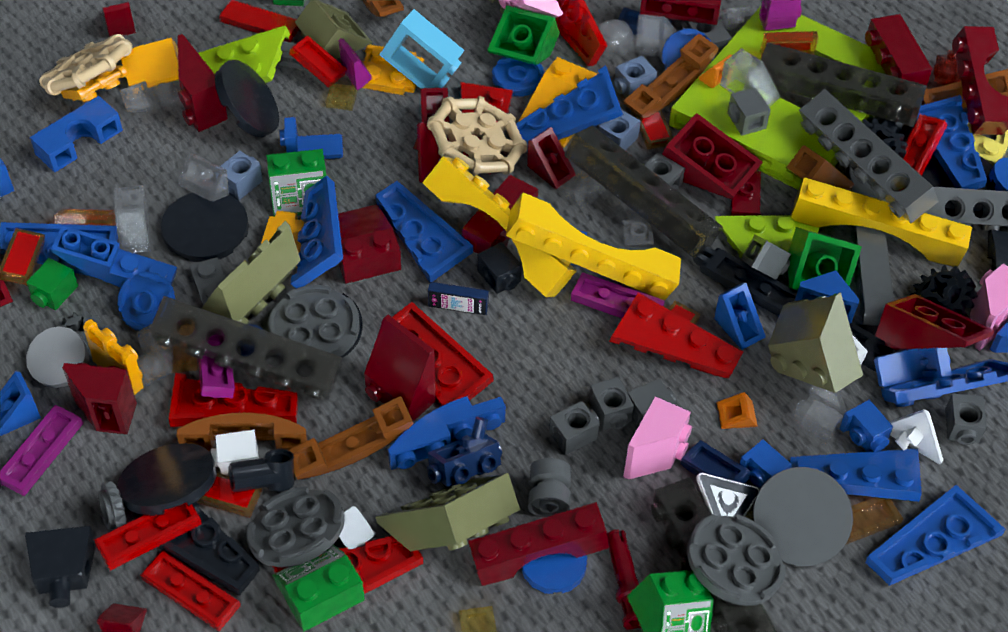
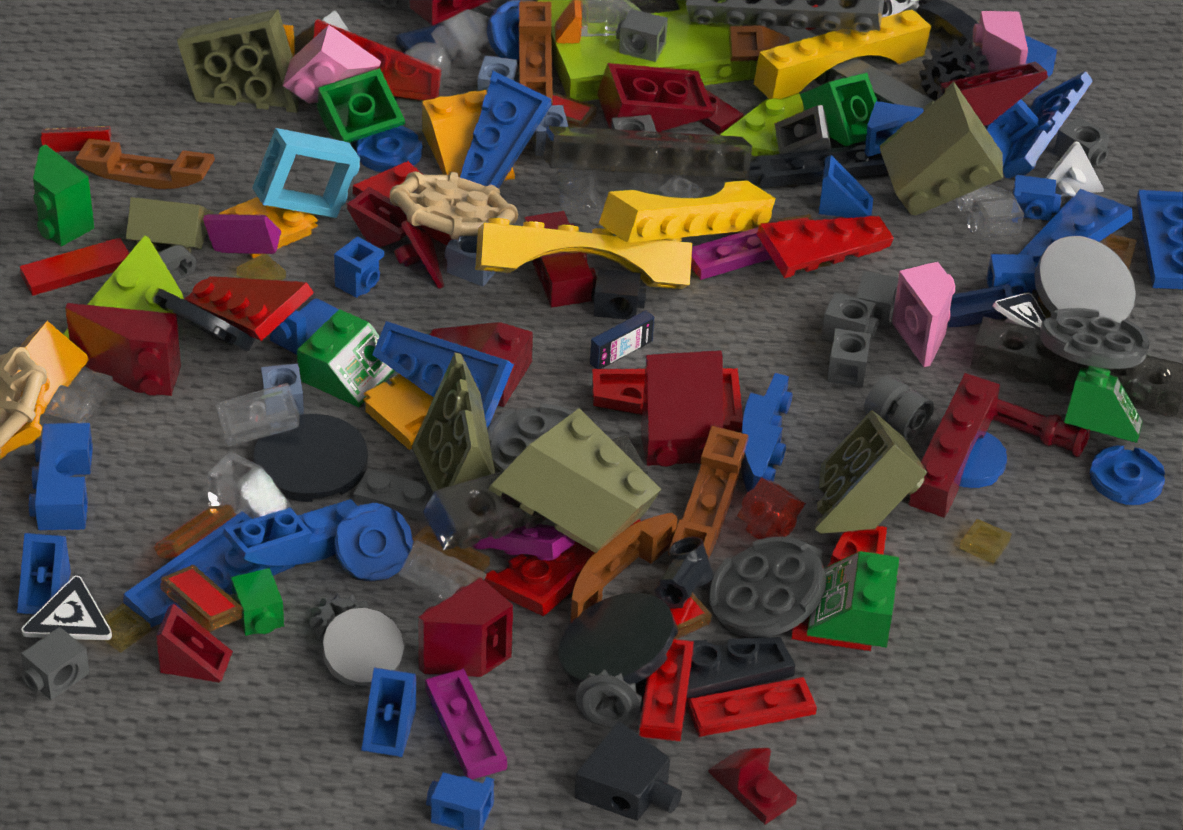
camera: 50 degrees left, 10 degrees down
(107, 352) = (425, 586): light orange plate -> none
(234, 448) = (637, 574): white brick -> none
(253, 360) = (579, 482): none -> olive wedge
(280, 108) = (250, 304): none -> red wing
(318, 61) = (207, 251): red tile -> none
(370, 480) = (770, 510): none -> clear red brick
(379, 139) = (357, 267): none -> blue brick
(426, 235) = (543, 314): blue wing -> none
(465, 458) = (812, 435): dark blue brick -> none
(548, 159) = (529, 189): dark red slope -> none
(737, 412) = (931, 252): orange slope -> none

